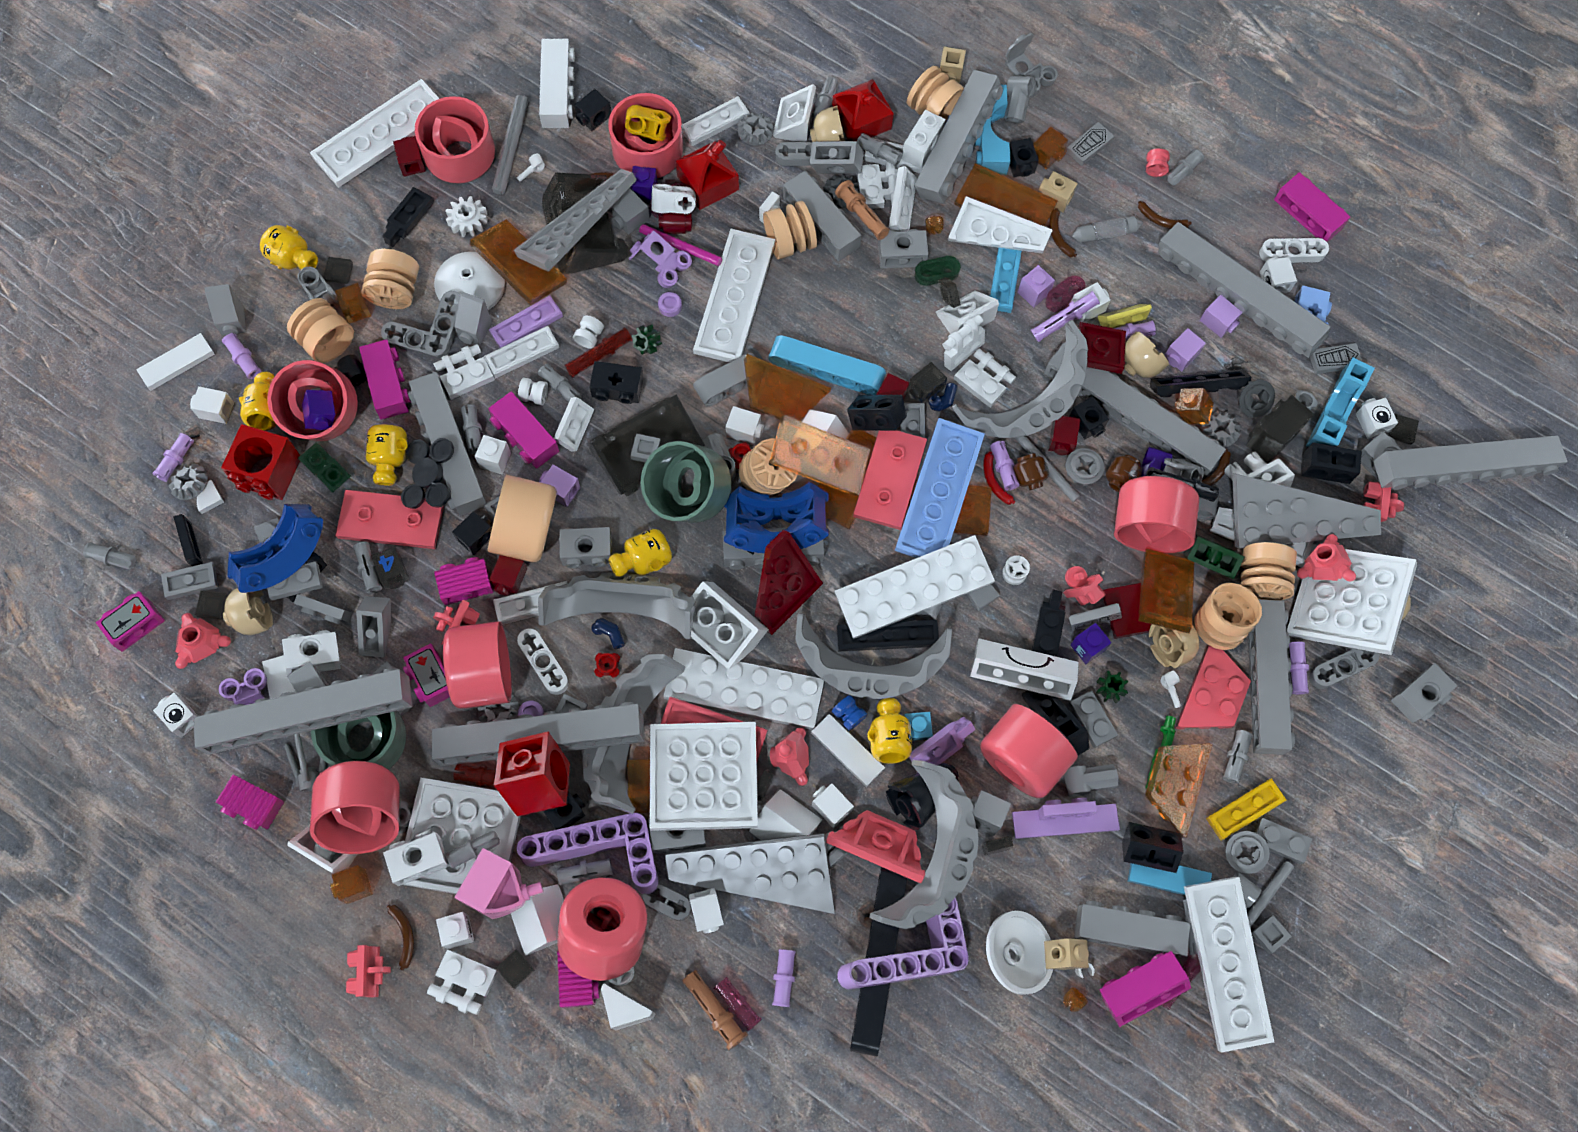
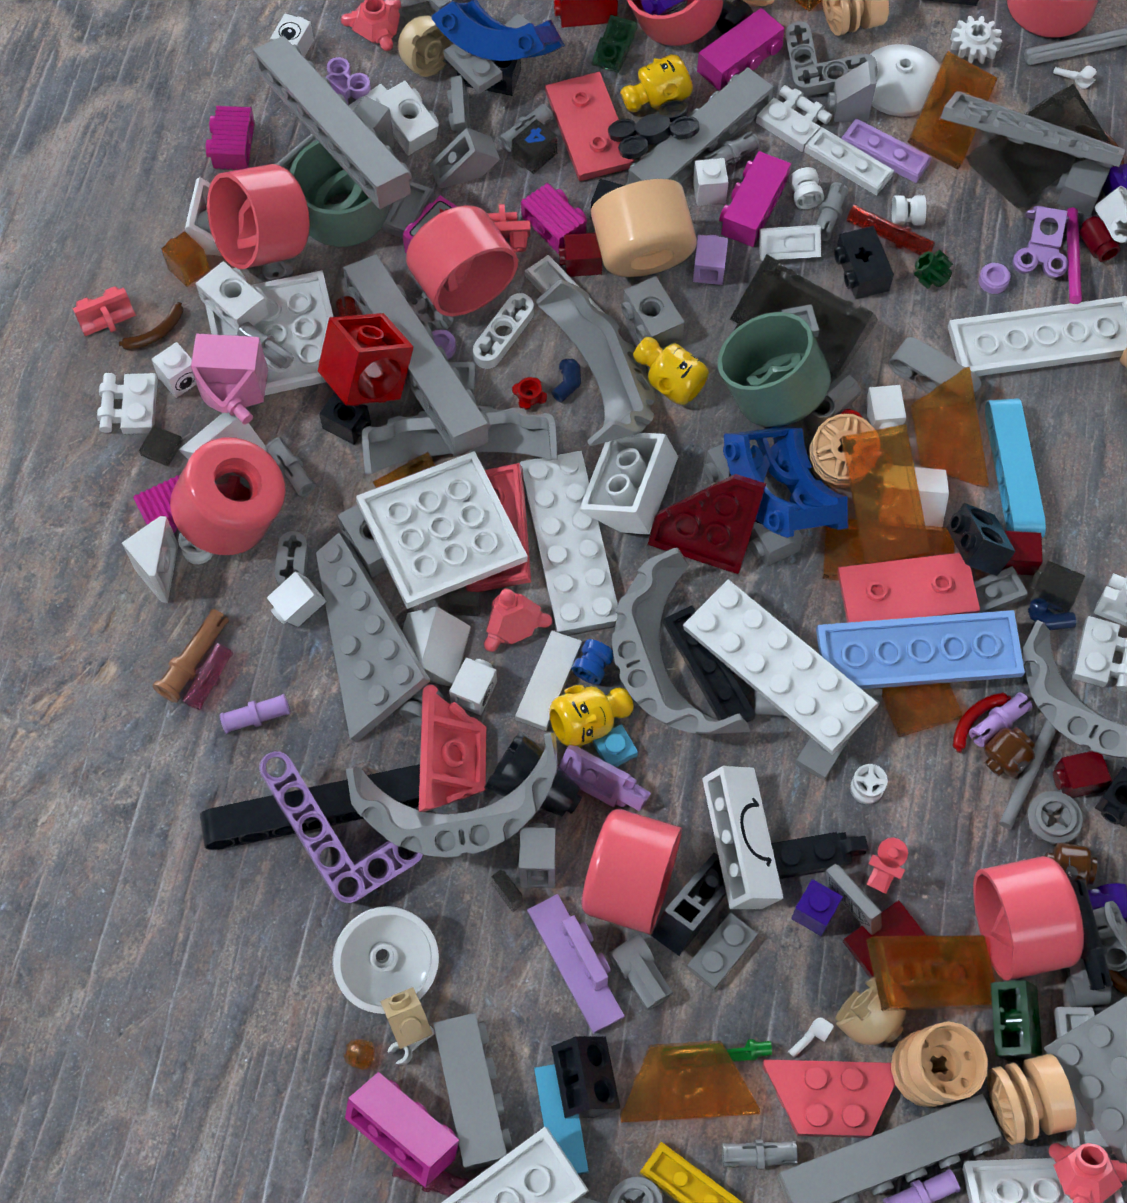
camera: 70 degrees right, 5 degrees down
(596, 844) = (325, 461): lavender beam -> none
(1110, 693) = (775, 965): dark green gear -> none

